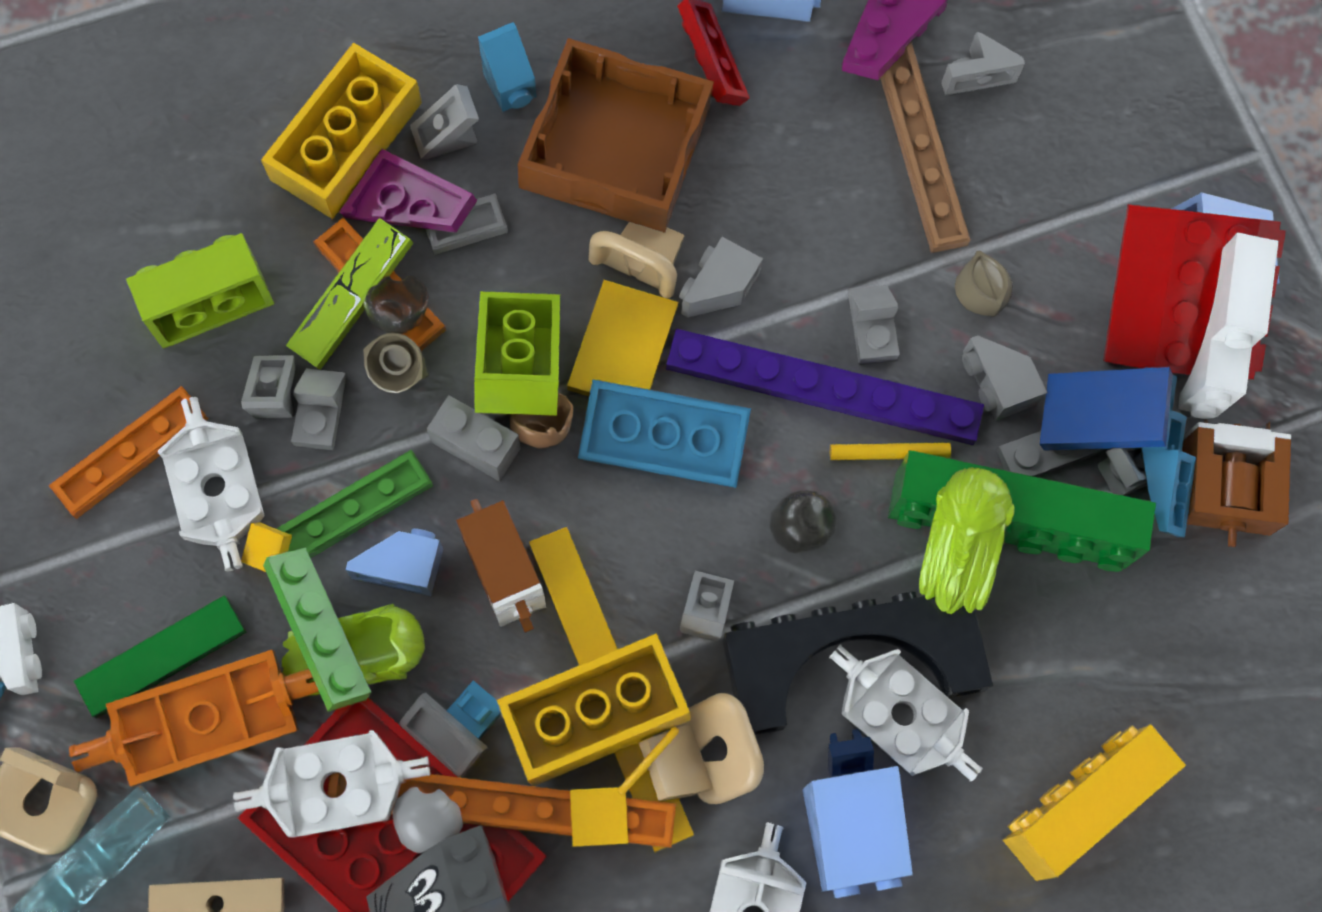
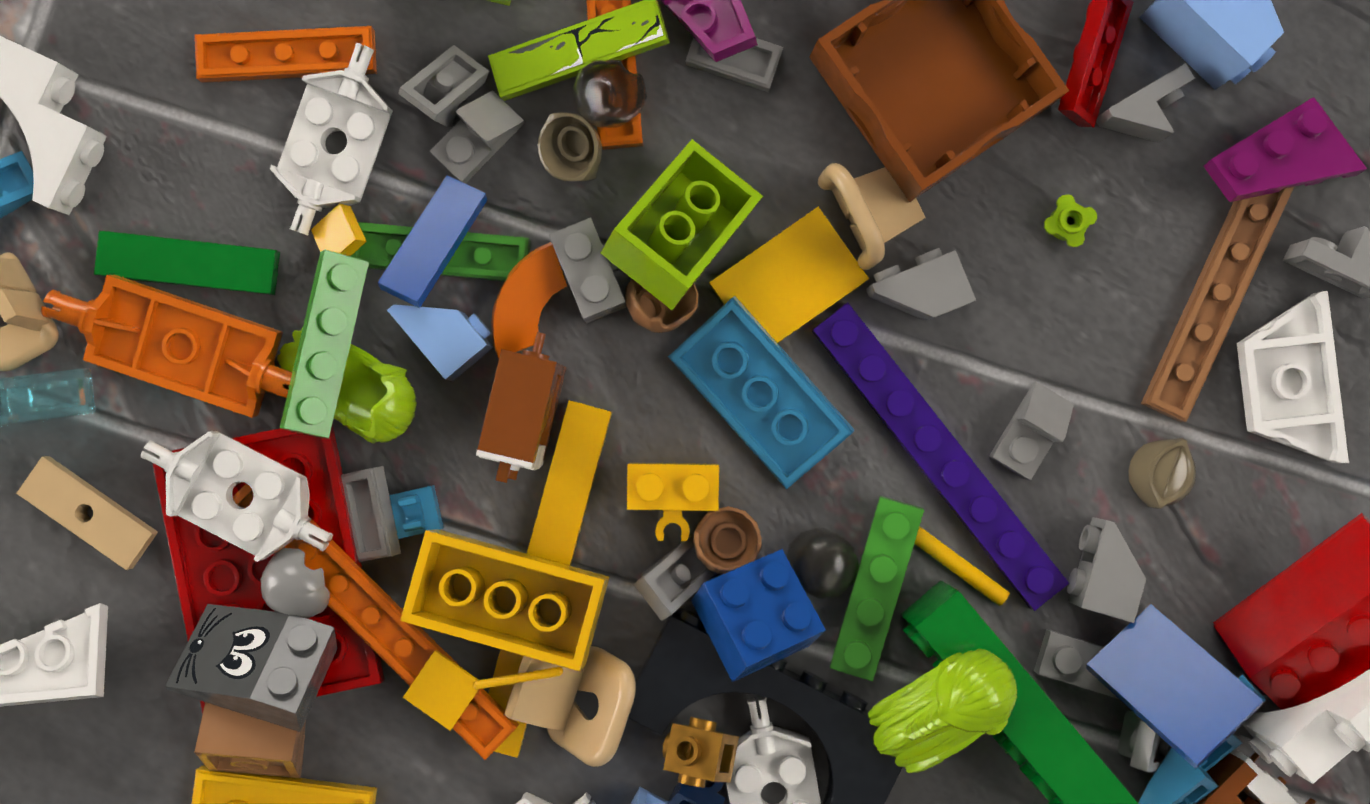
camera: 45 degrees right, 15 degrees up
(342, 499) = (432, 241): none -> tile
(440, 491) = (523, 298): none -> orange tile
(655, 546) = (673, 490): none -> yellow brick
(723, 553) = (727, 539): none -> medium nougat hair
(773, 64) = (1142, 112): none -> light grey slope
(780, 177) = (1057, 222): none -> lime plate
(785, 582) = (757, 614): none -> blue brick
(824, 714) = (699, 752): none -> pearl gold brick
(855, 508) = (876, 588): none -> bright green plate
(1019, 164) = (1294, 381): none -> white wing

